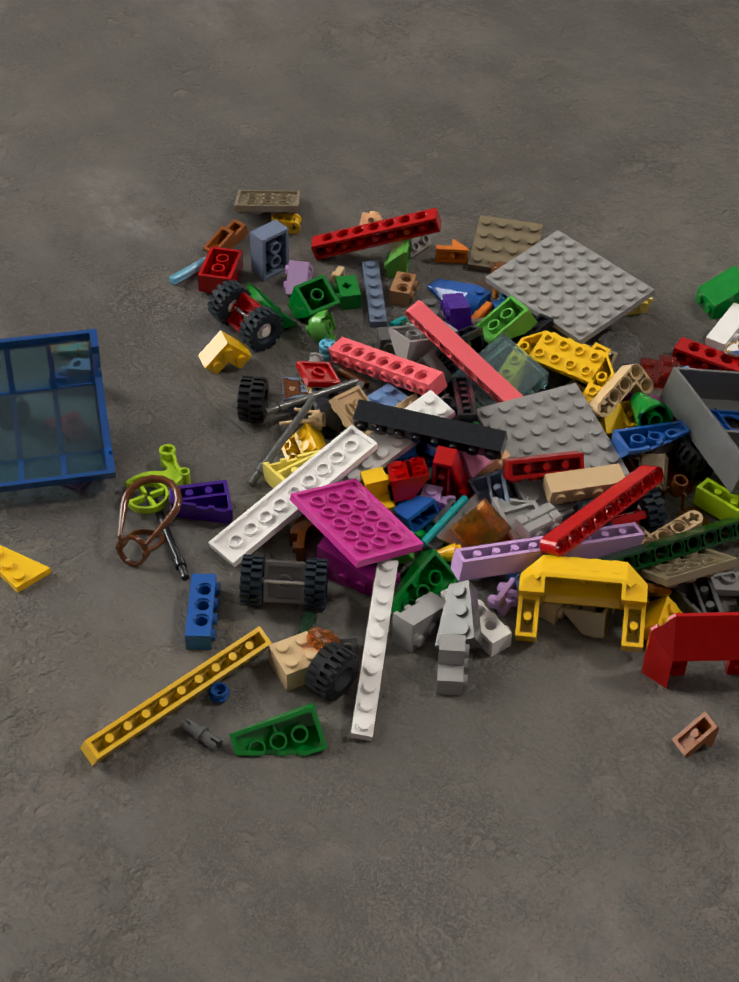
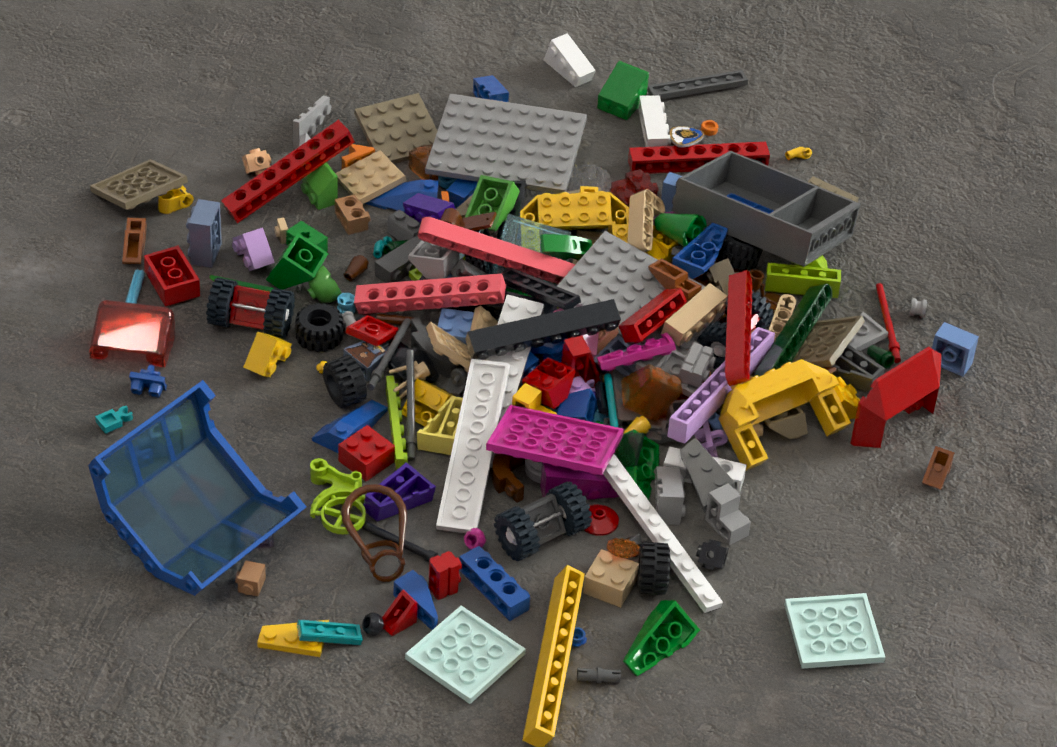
camera: 40 degrees left, 0 degrees up
(31, 506) = (251, 578): none -> medium nougat brick
(36, 576) = (329, 632): none -> teal tile
(77, 589) = (373, 624): none -> black piece
(103, 594) = (400, 614): none -> red slope
(117, 654) = (465, 654): none -> light aqua plate
(125, 332) = (147, 378): none -> blue hips
(132, 588) = (418, 589): none -> blue slope
(151, 295) = (133, 329): none -> clear red windscreen
(163, 581) = (444, 575): none -> red brick
(216, 460) = (366, 452): none -> red brick
(225, 569) = (474, 538): none -> dark pink piece
(228, 438) = (348, 424): none -> blue wedge
(247, 467) = (395, 418): none -> lime plate
(283, 352) = (319, 327): none -> black tyre
(308, 620) = (582, 542): clear green pin -> none
(346, 611) = (603, 520): none -> red dish
(364, 327) = (356, 267): none -> reddish brown cone
(374, 294) = (336, 238): sand blue plate -> none
(403, 691) = (719, 551): none -> black brick
(416, 564) = (629, 449): none -> clear green piece
(445, 269) = (371, 177): none -> tan plate
(446, 822) = (834, 630): none -> light aqua plate
(449, 210) = (310, 121): none -> light grey wing
(458, 323) = (472, 223): none -> reddish brown door
(501, 489) = (635, 352): none -> dark pink wing
(525, 377) = (564, 246): none -> green slope
(595, 446) = (674, 277): none -> dark orange slope
(609, 248) = (490, 88): none -> blue wedge
(701, 253) = (569, 61): none -> white wedge

